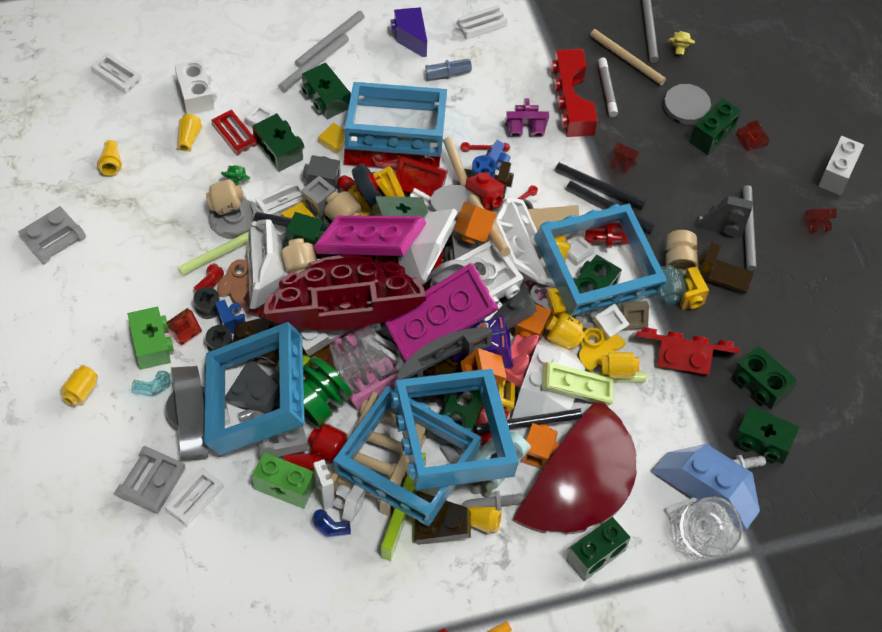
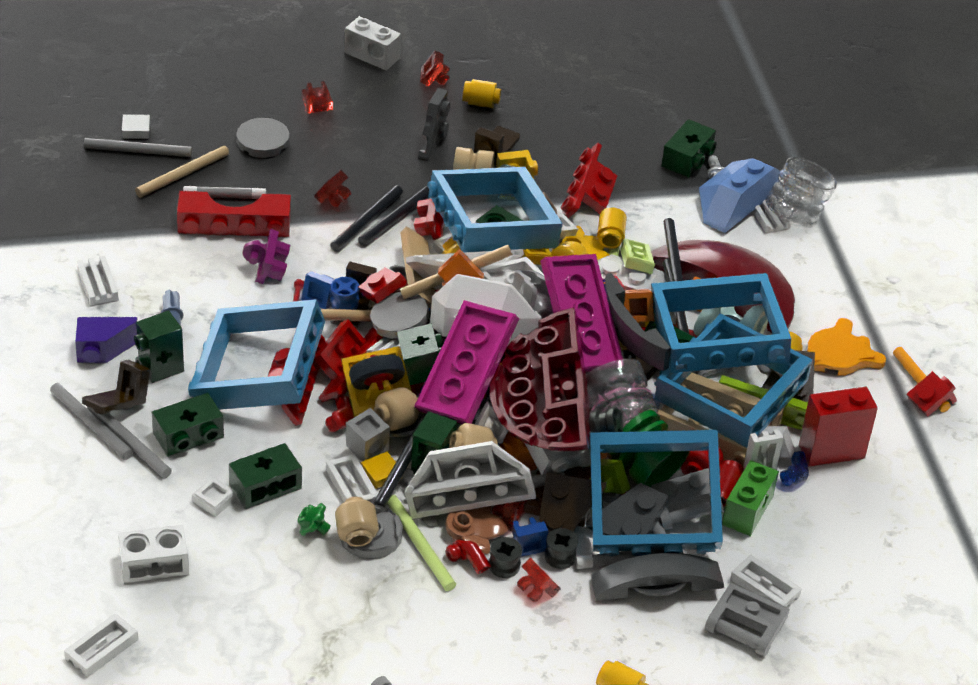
camera: 85 degrees left, 15 degrees down
(109, 160) = (261, 649): yellow cone -> none
(149, 337) = (555, 612): bright green brick -> none
(153, 388) = (619, 613): clear light blue arm -> none
(188, 131) = (229, 565): yellow cone -> none
(243, 145) = (235, 527): red tile -> none
(307, 345) = (606, 421): none -> pearl dark grey wheel
(324, 167) = (322, 436): dark grey brick -> none
(333, 138) = (260, 428): yellow tile -> none
(346, 45) = (130, 390): none -> dark brown bracket
(365, 547) = (837, 426): none -> red brick
(396, 58) = (160, 345): none -> dark green brick
(499, 571) = (842, 351): none -> light orange tile
(575, 413) = (673, 251): none -> black bar
(598, 548) = (818, 273): dark green brick -> none
(676, 20) = (135, 126): none -> white tile
(681, 41) = (175, 124): light yellow plant -> none
(715, 126) = (306, 117): dark green brick -> none
(749, 233) = (421, 119): light grey bar -> none
(768, 374) = (625, 138): dark green brick -> none
(796, 255) = (481, 93): none -> yellow brick

